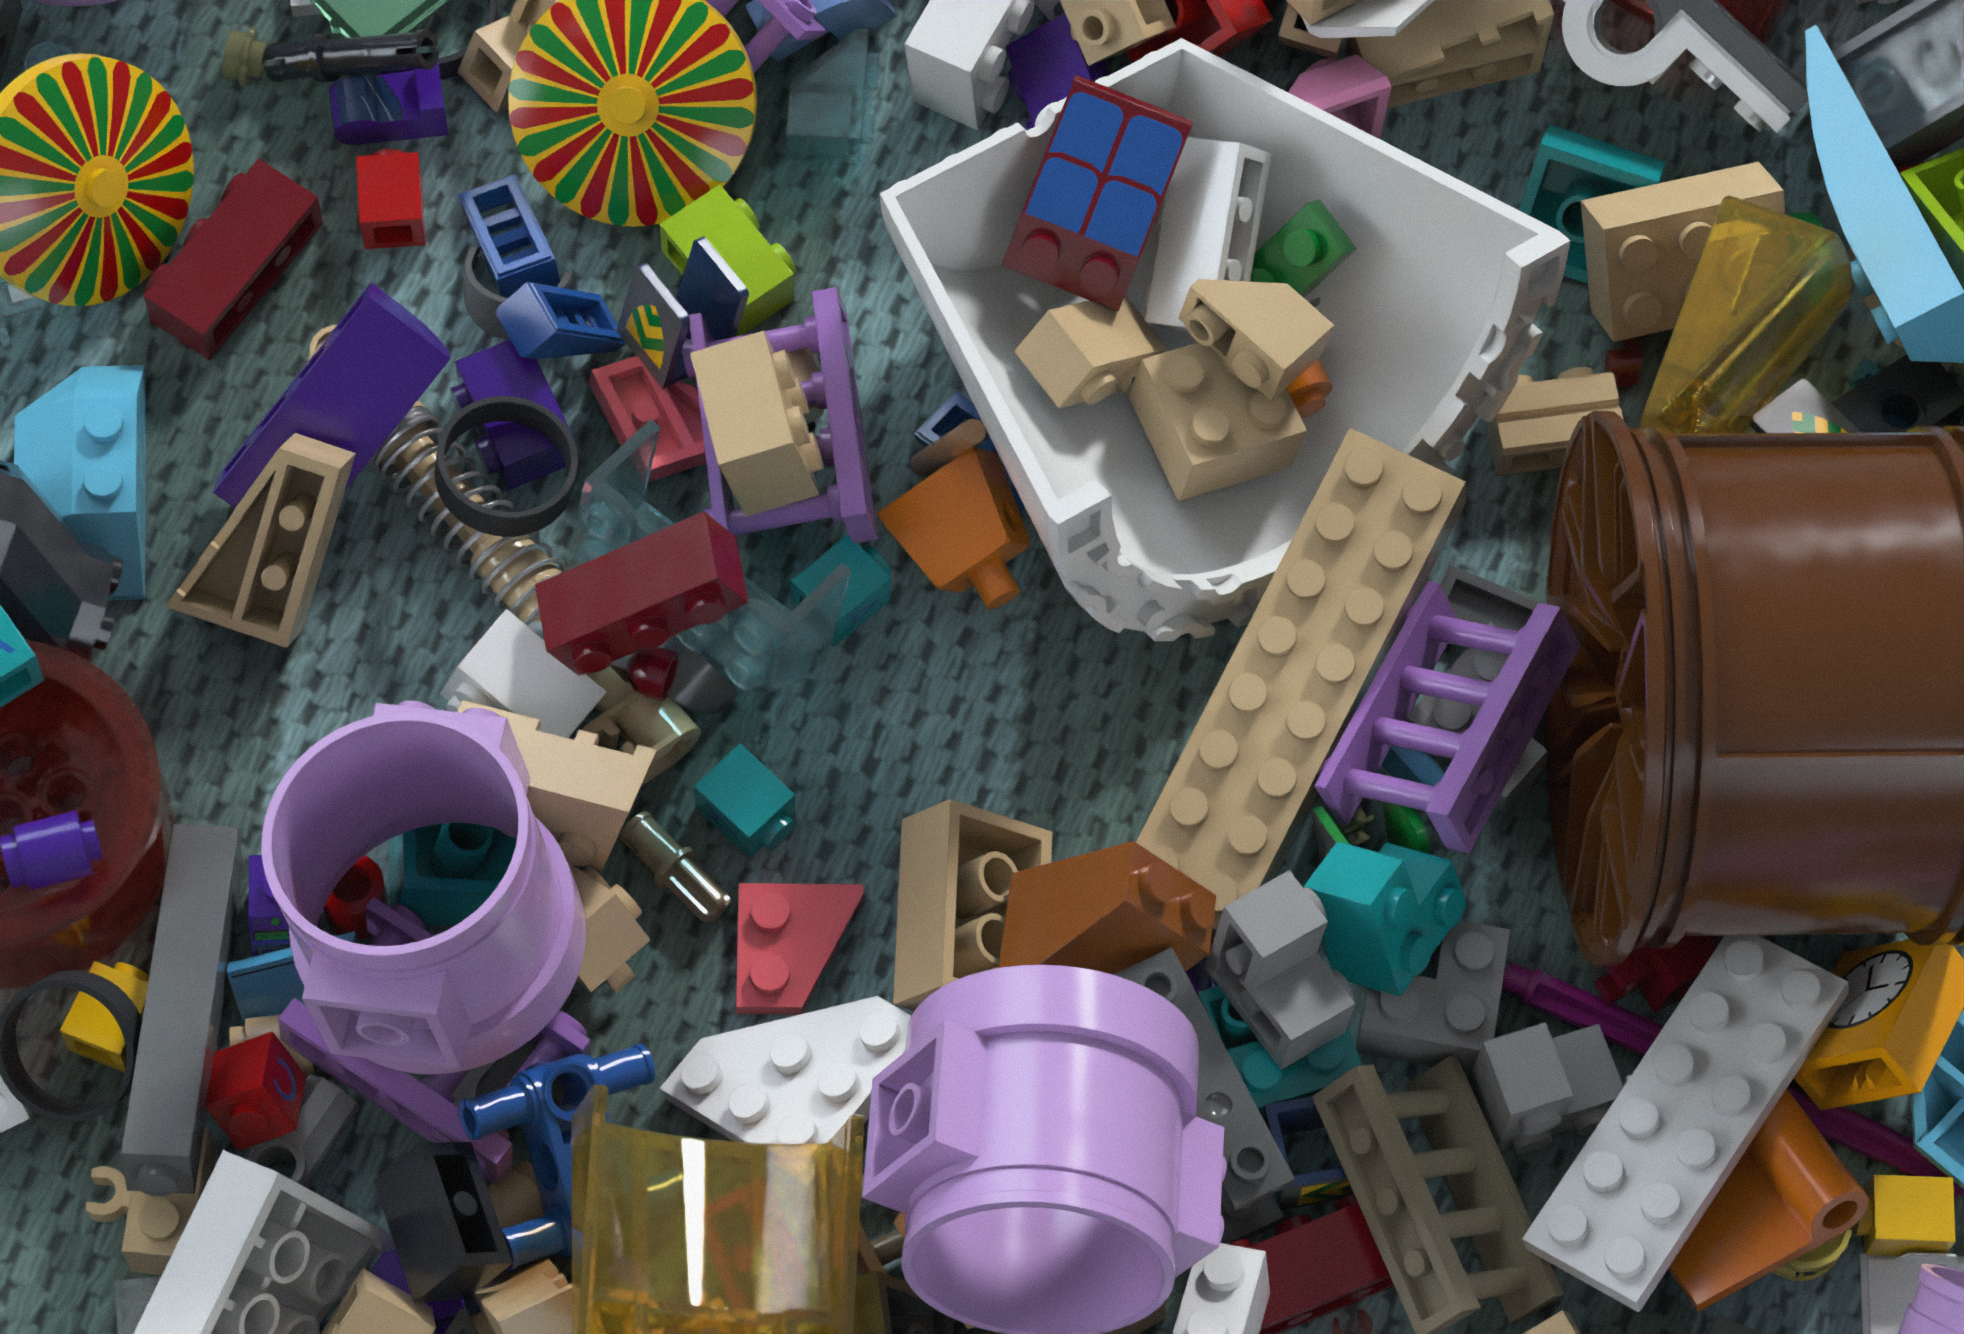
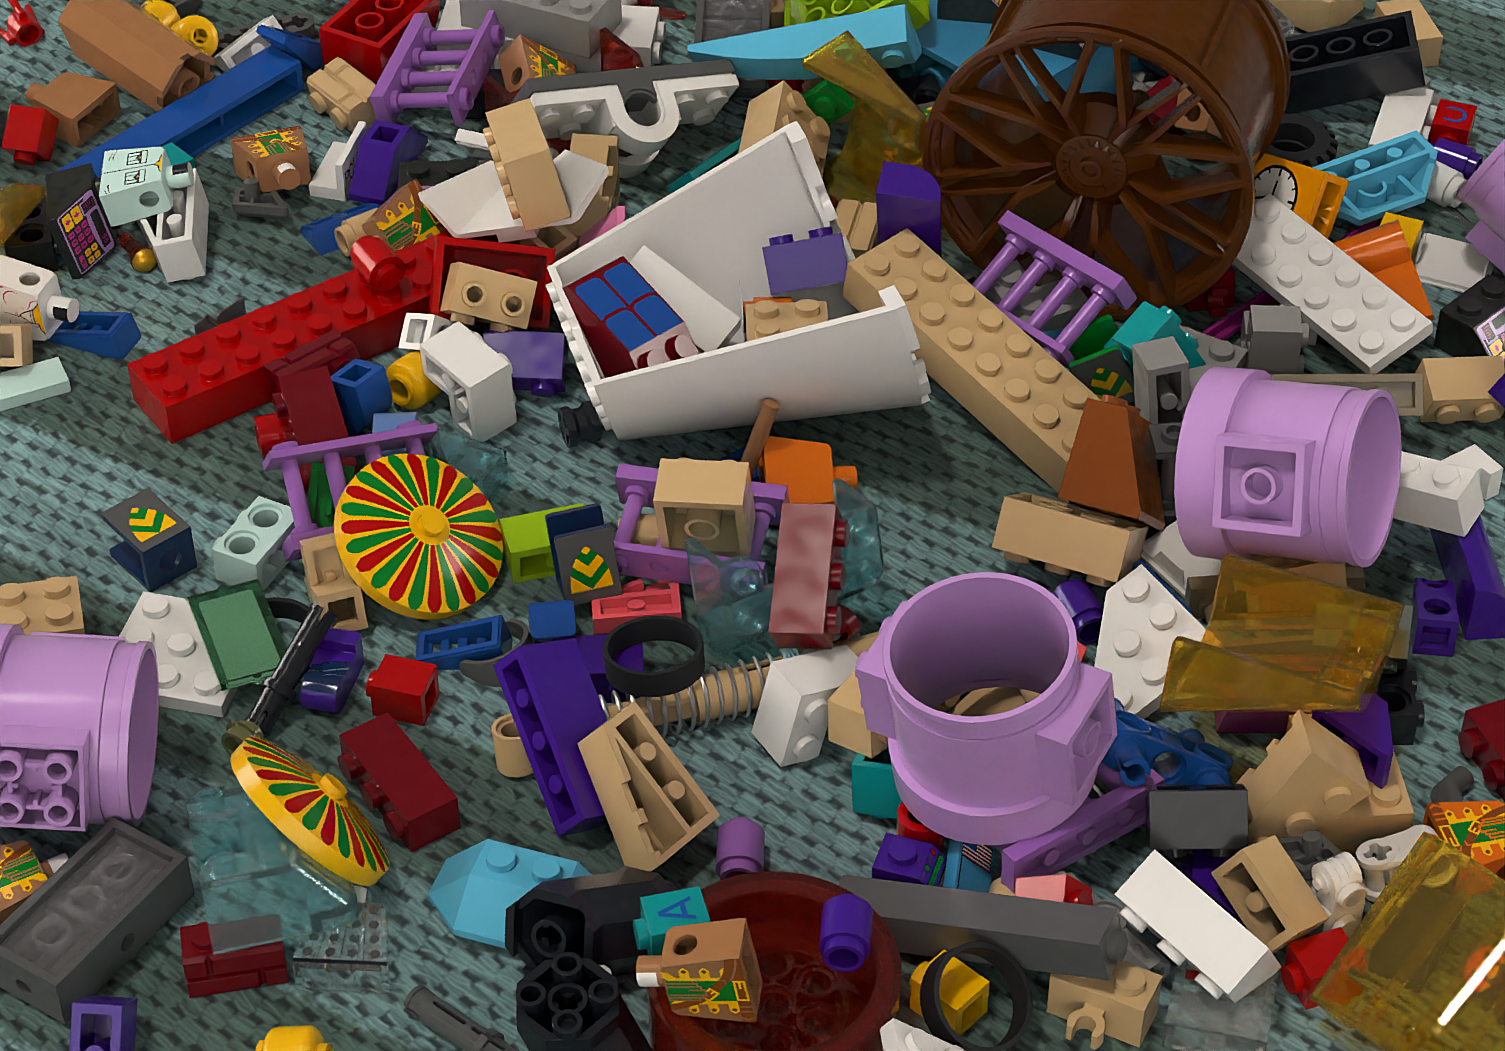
camera: 65 degrees left, 25 degrees down
(261, 695) = (739, 848): none -> medium lavender brick
(860, 971) = (1083, 609): none -> dark purple brick
(1258, 329) = (763, 284): tan slope -> none
(1303, 250) = (711, 270): green plate -> none
(1377, 374) = (805, 262): none -> dark purple brick
(1501, 487) = (909, 200): none -> dark purple brick

